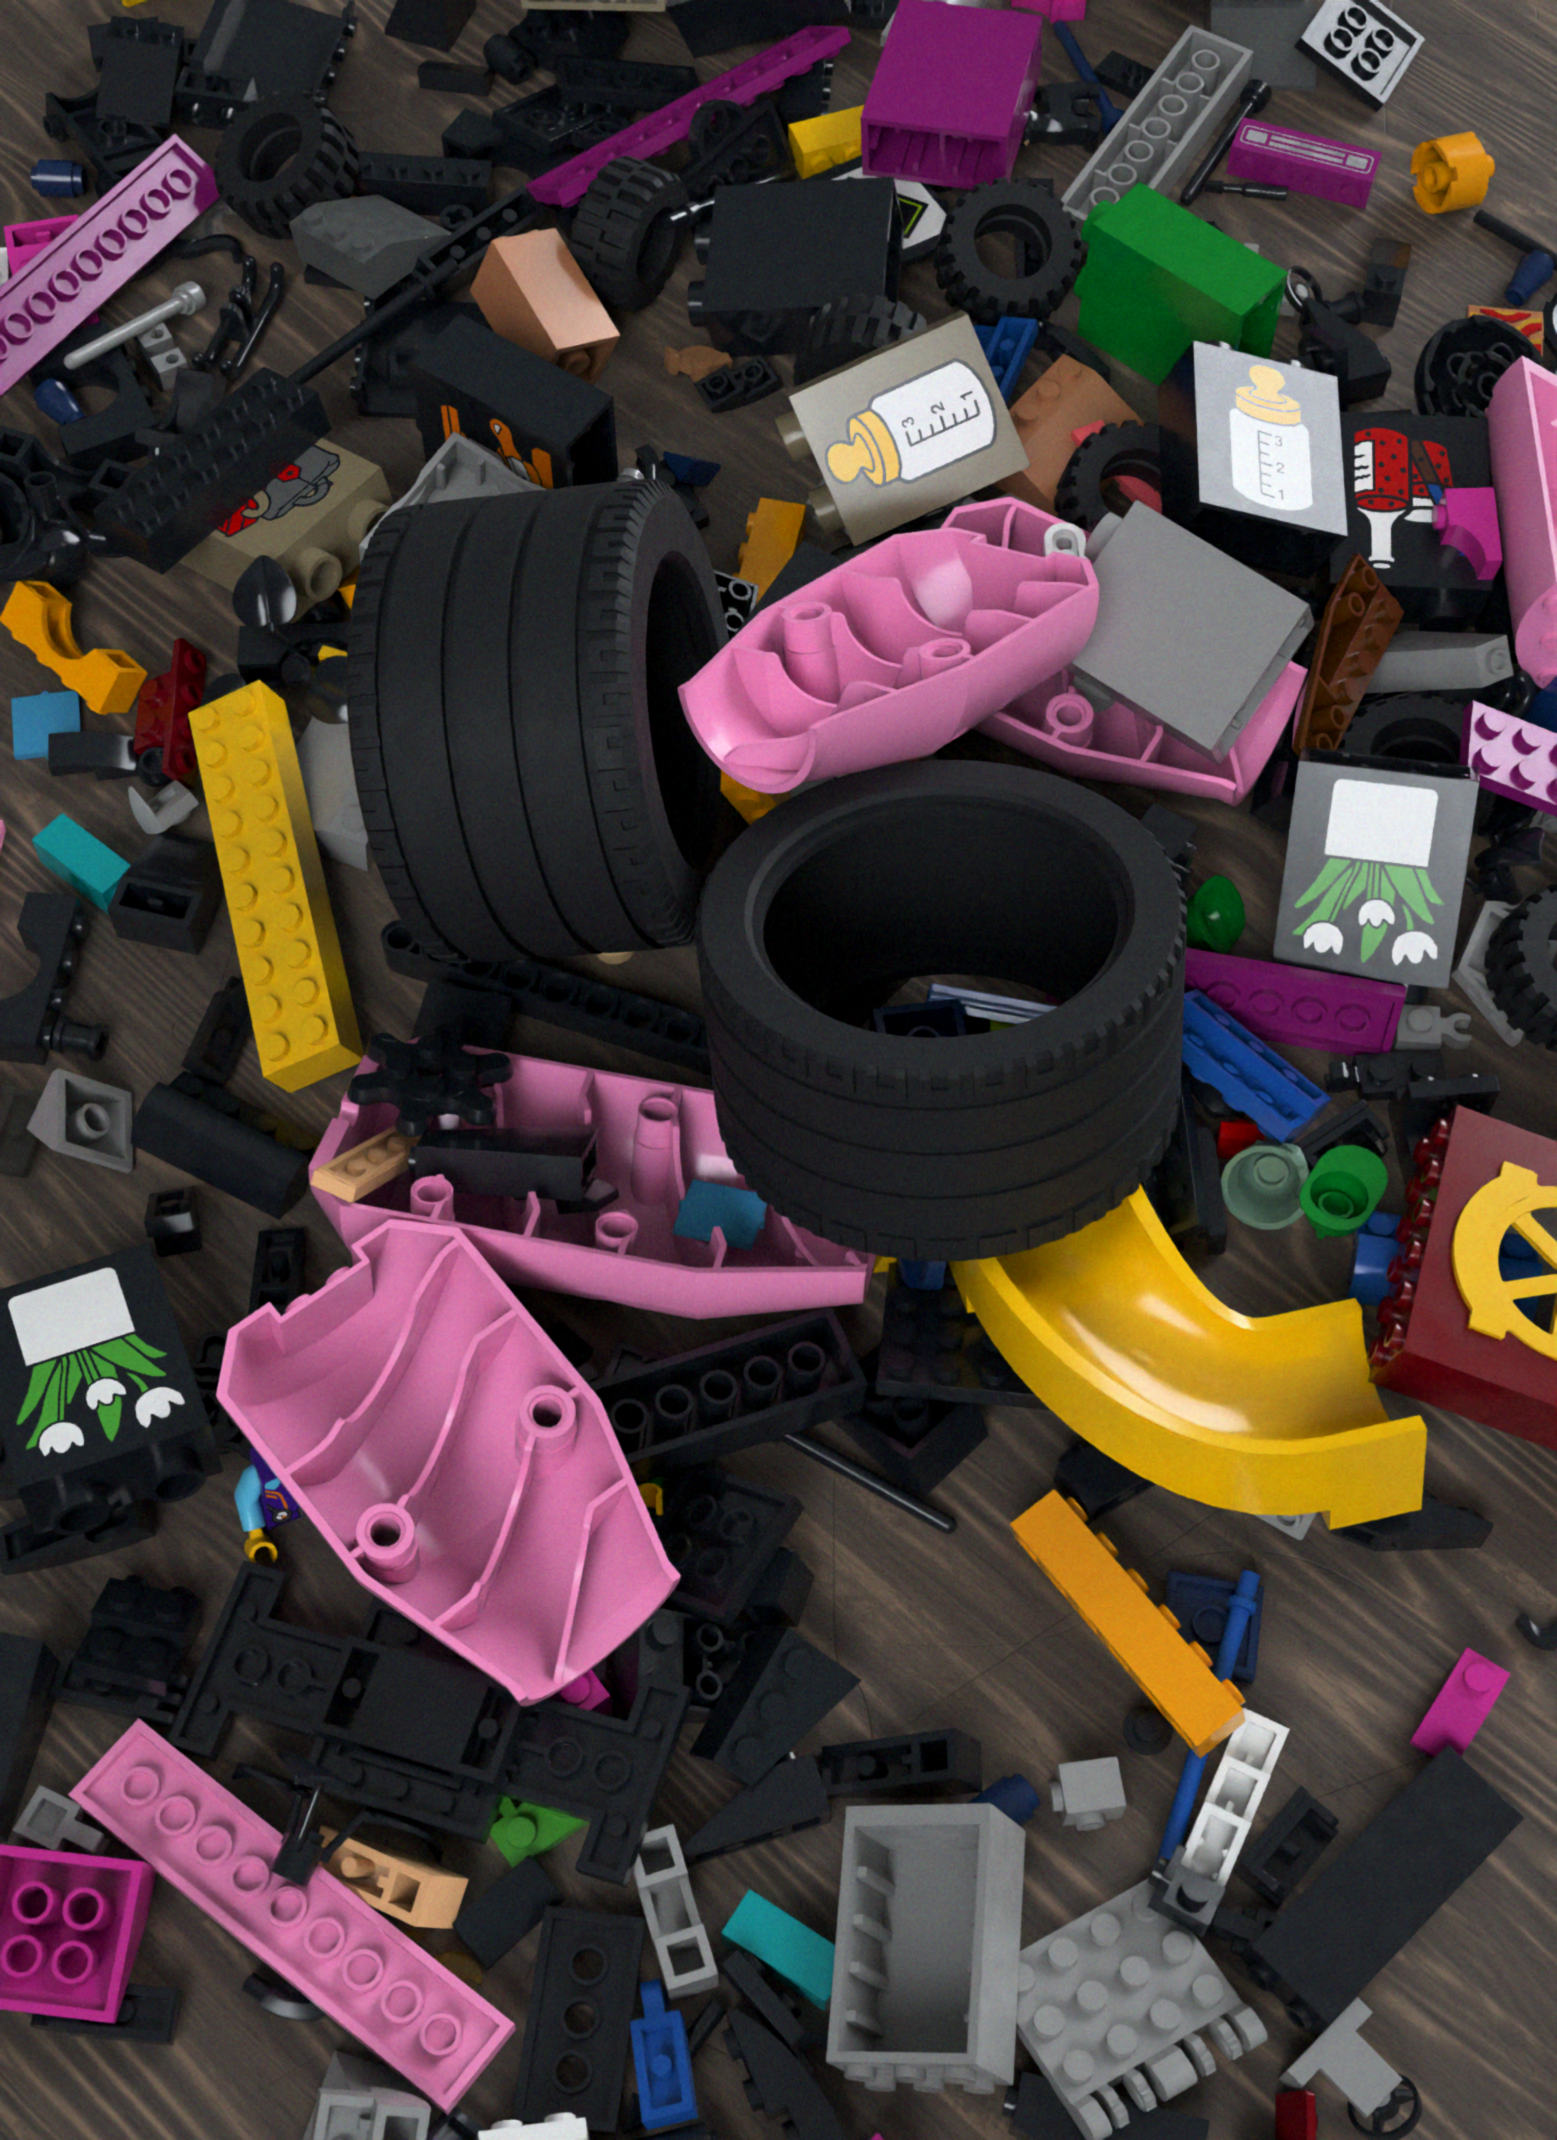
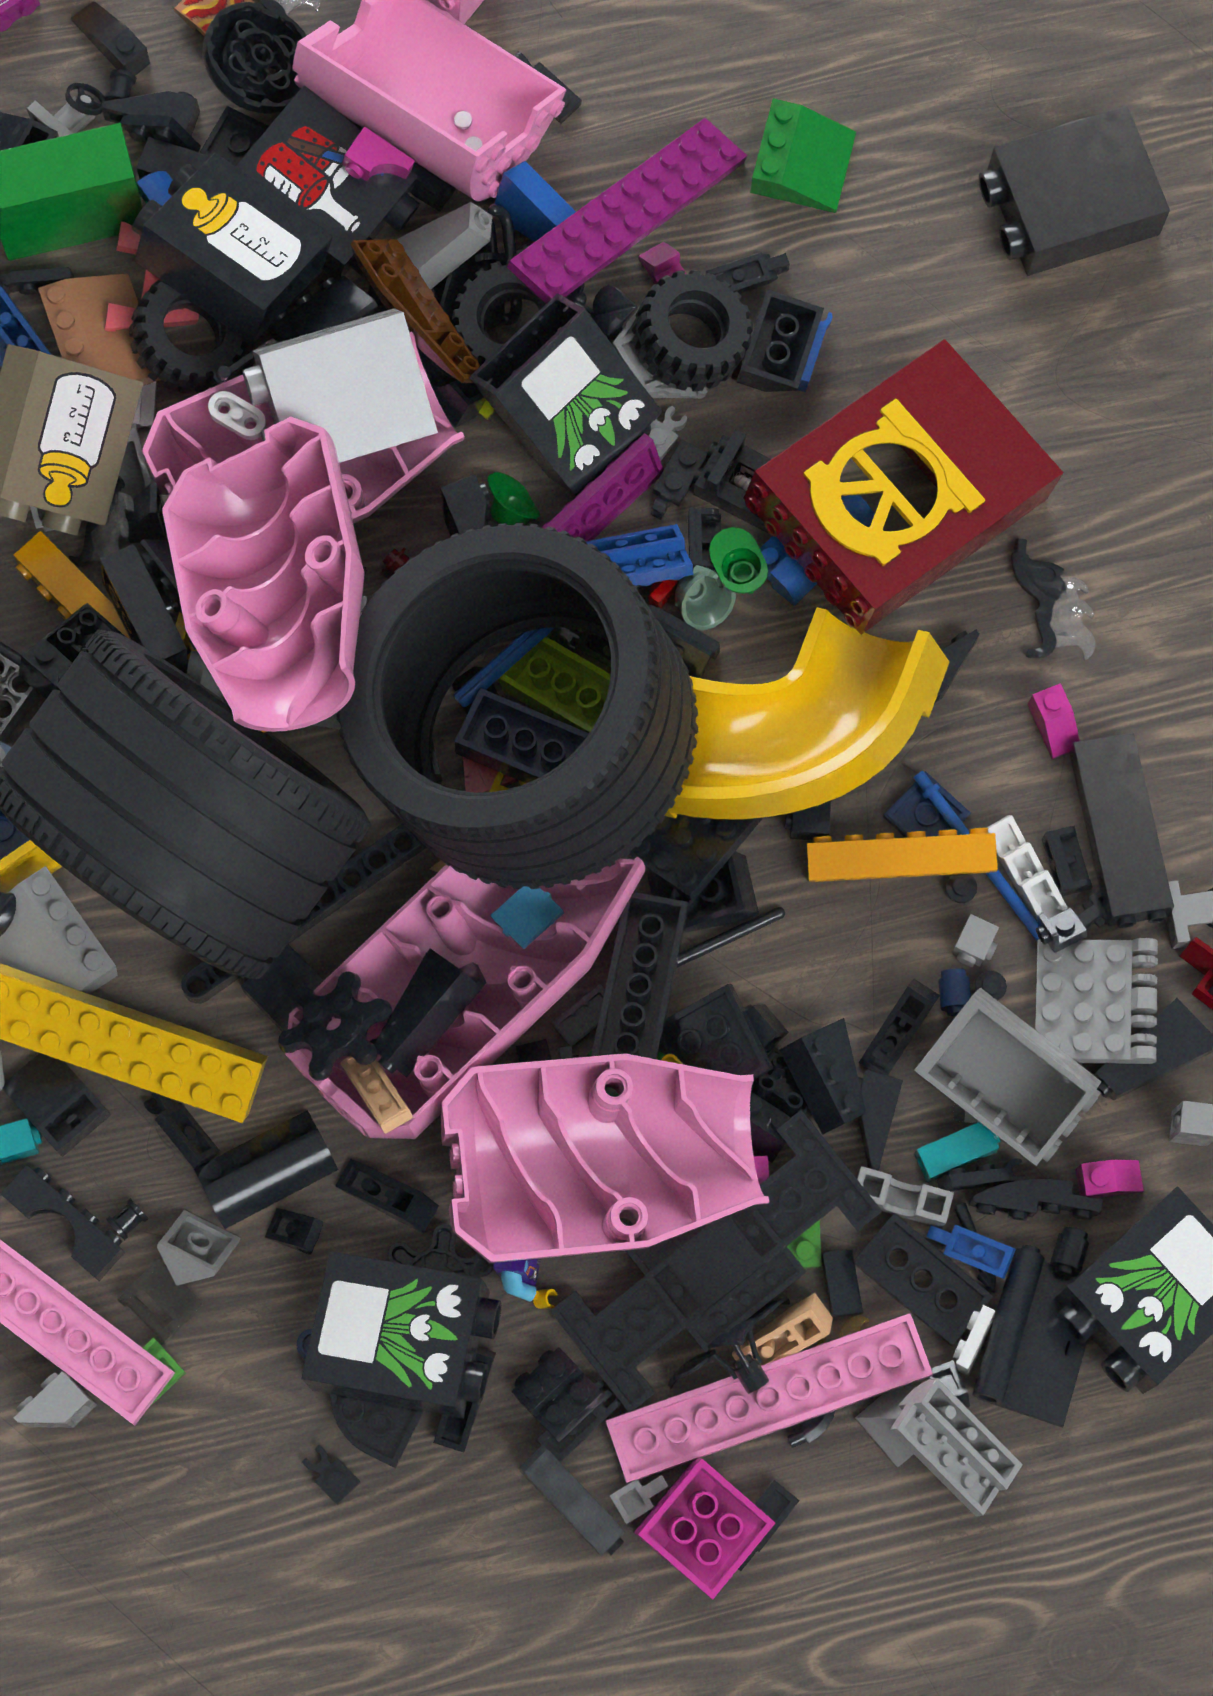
camera: 60 degrees left, 15 degrees up
(1045, 1854) = (992, 983): none -> black plate

